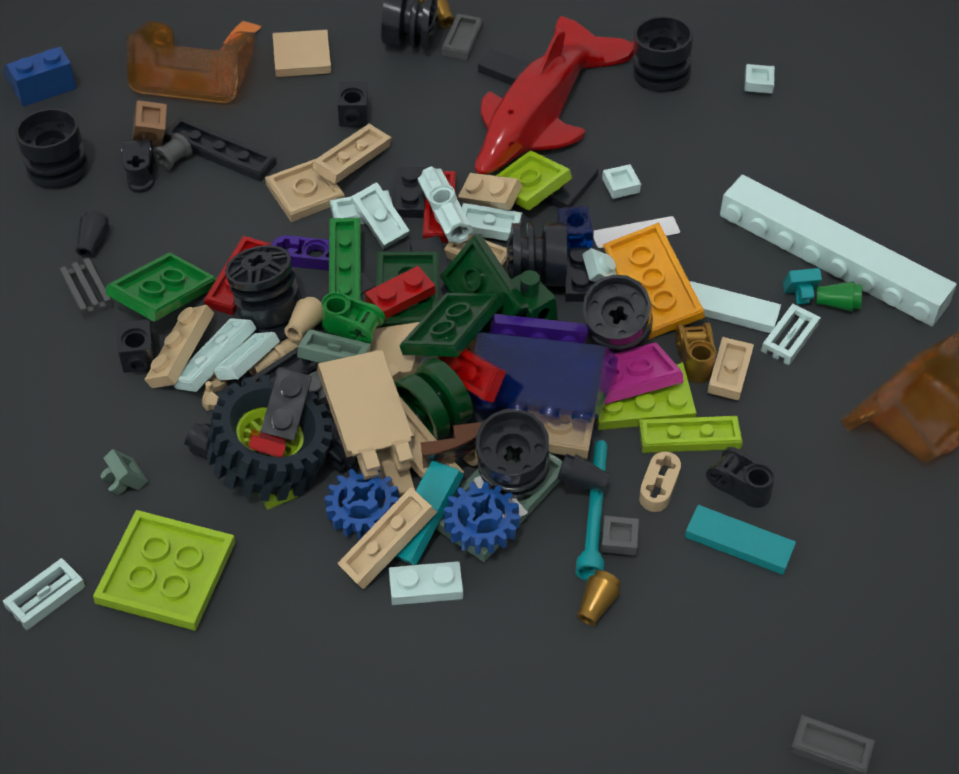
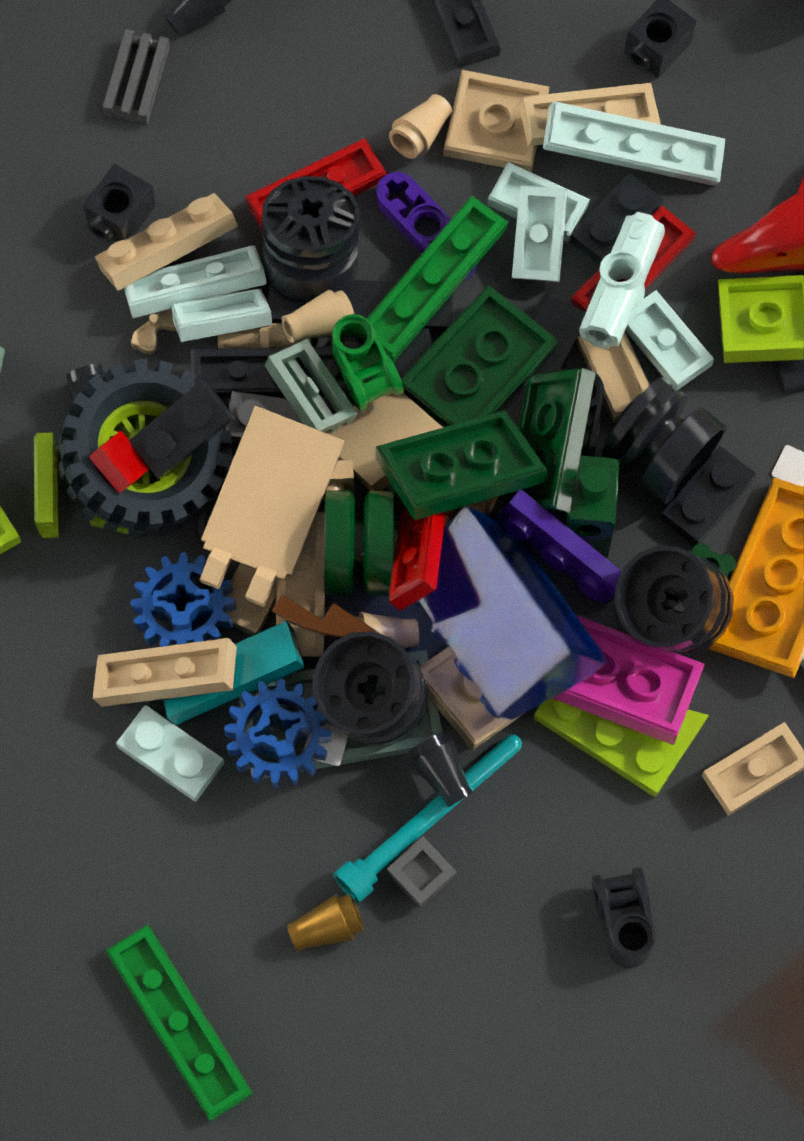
camera: 40 degrees right, 20 degrees up
(161, 286) = (208, 145): green tile -> none
(225, 501) = (46, 485): none -> lime tile
(268, 214) = (418, 128): none -> tan cone
(387, 150) = (634, 143): none -> light aqua tile
(401, 291) = (456, 367): red plate -> none
(490, 191) = (702, 299): tan plate -> none
(568, 712) = (179, 1023): none -> green tile
(578, 226) = (751, 449): clear blue brick -> none
(598, 264) = (733, 511): light aqua plate -> none
(666, 483) = (527, 832): tan beam -> none
(689, 434) = (628, 811): lime tile -> none
(696, 351) = (743, 707): pearl gold piece -> none
(740, 539) = (552, 986): teal tile -> none

